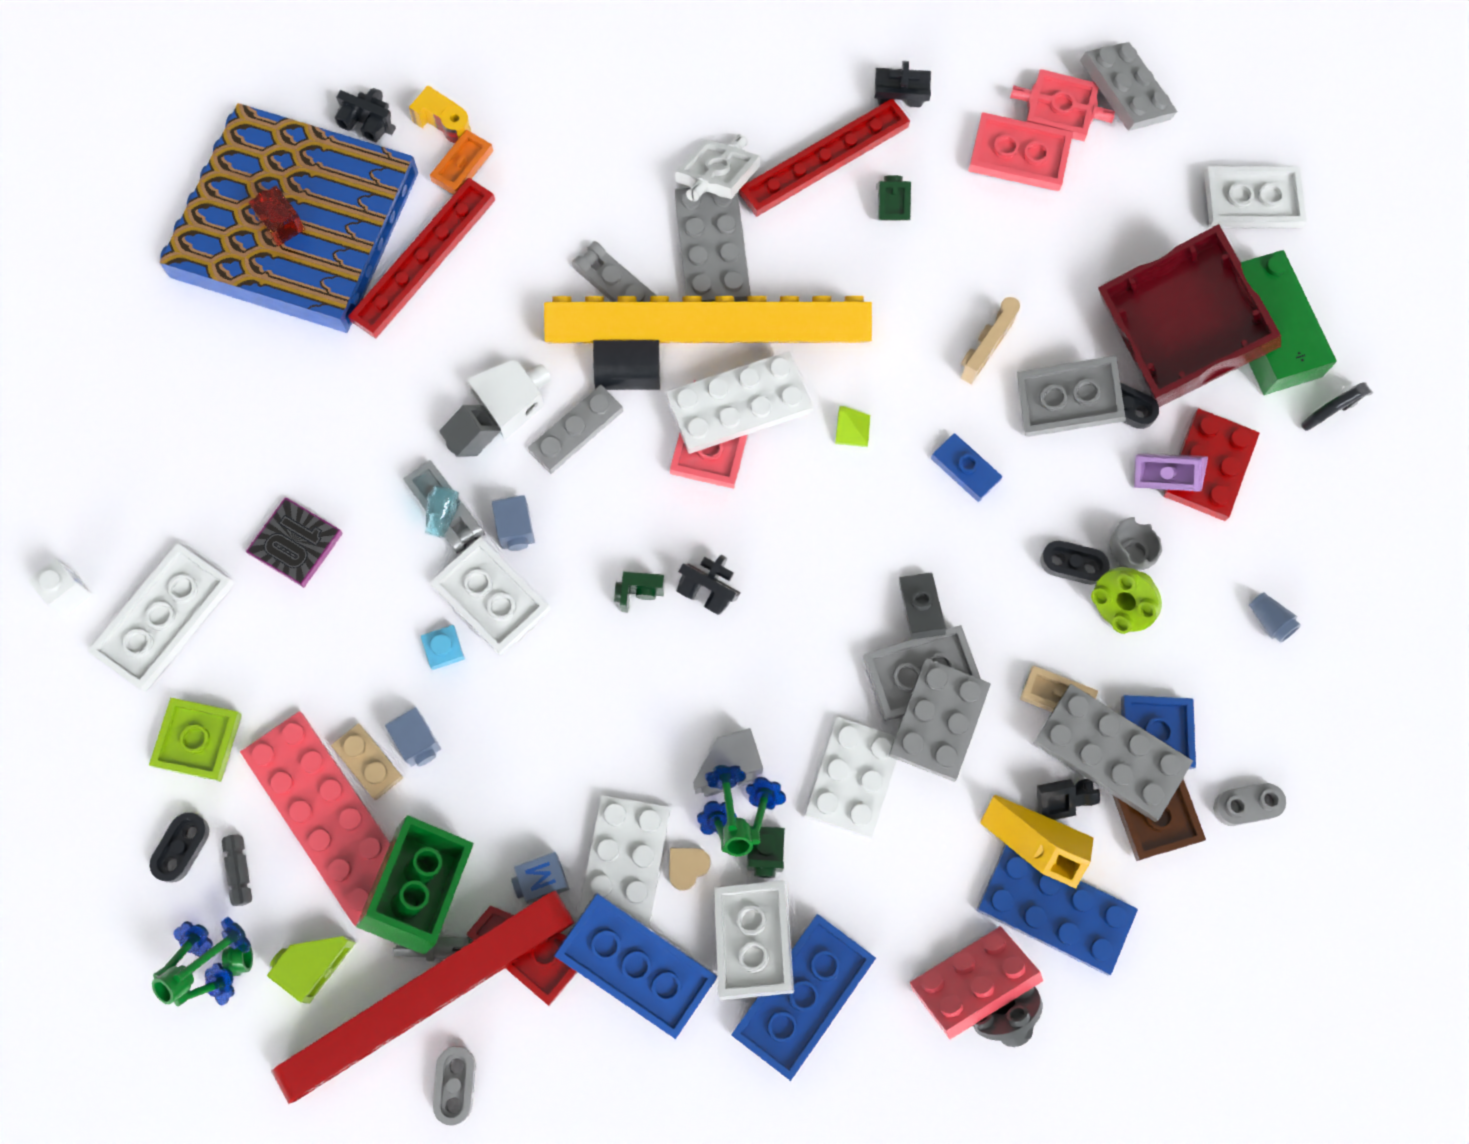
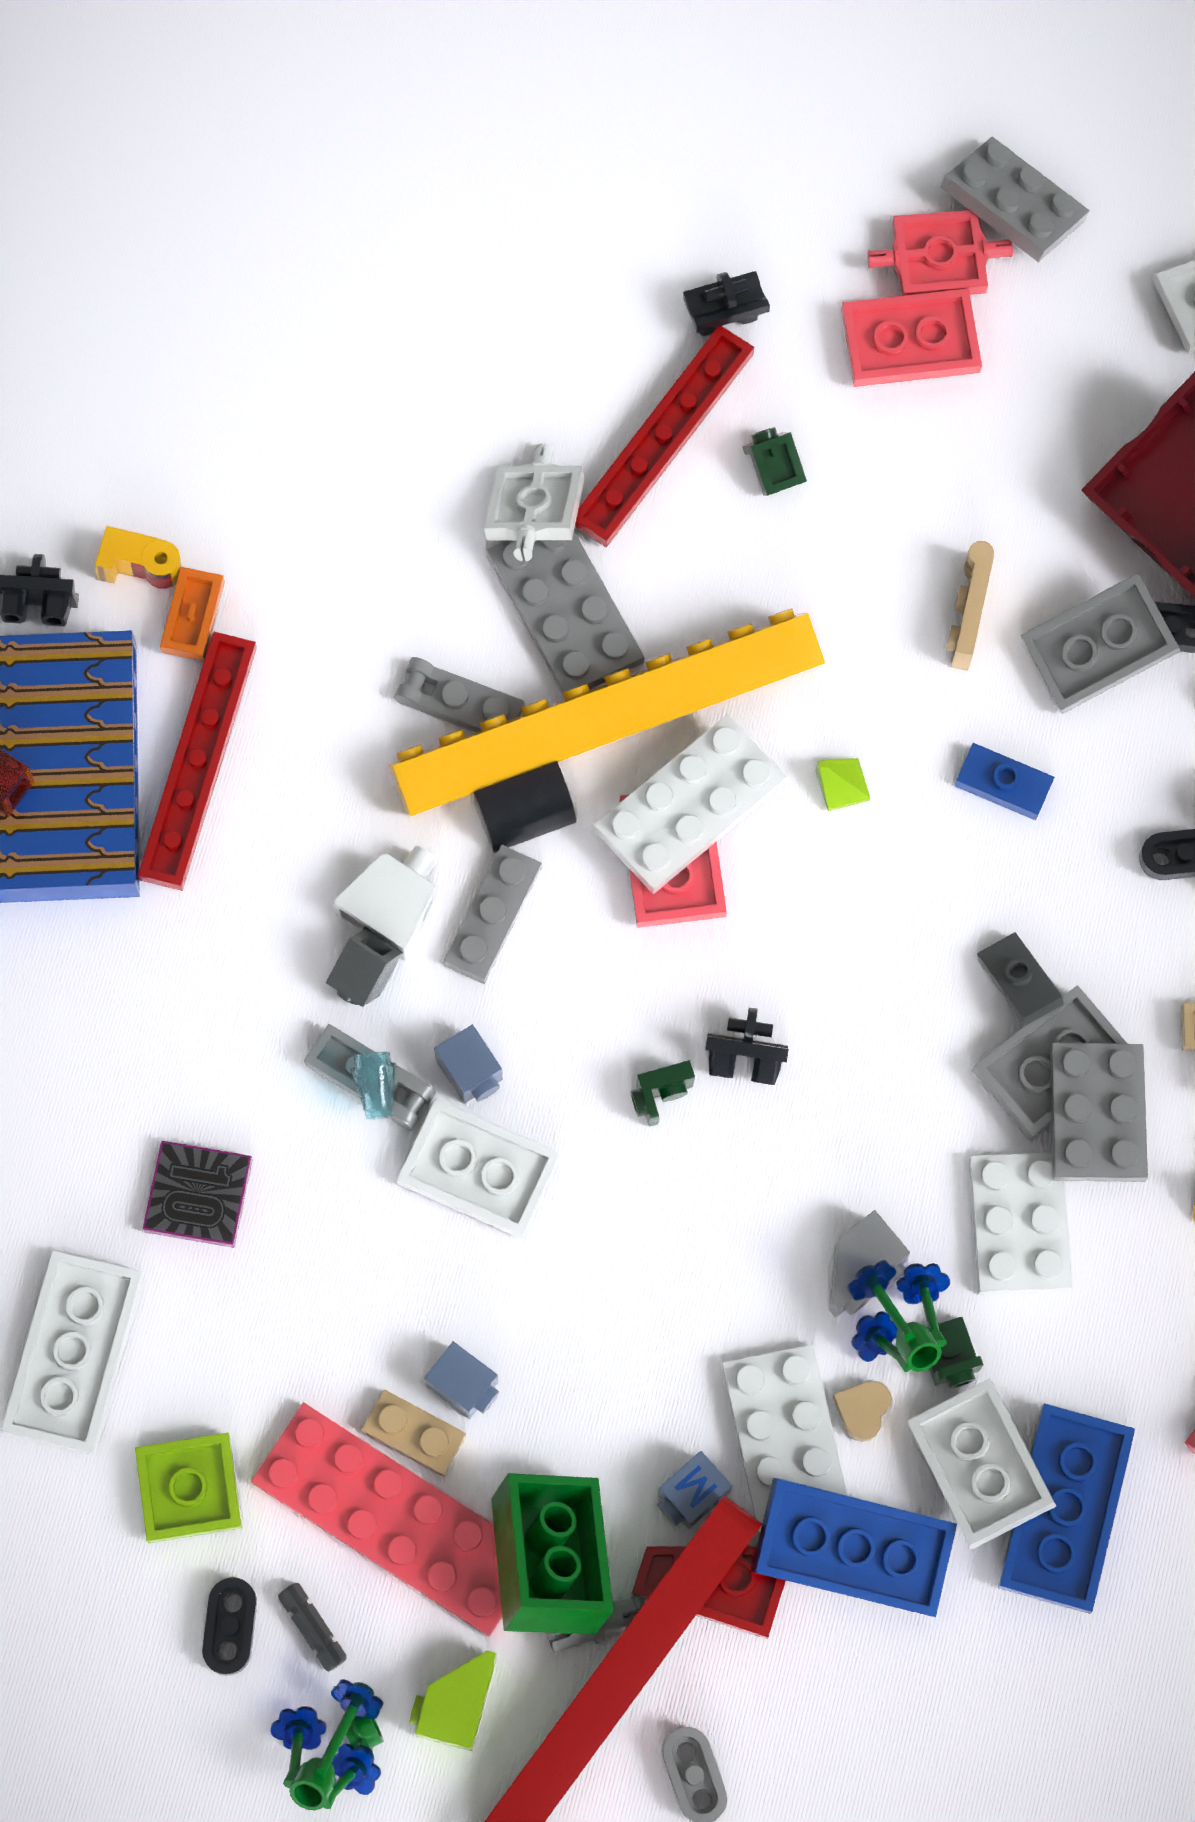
camera: 20 degrees left, 0 degrees up
(442, 647) = (445, 1255): medium azure plate -> none

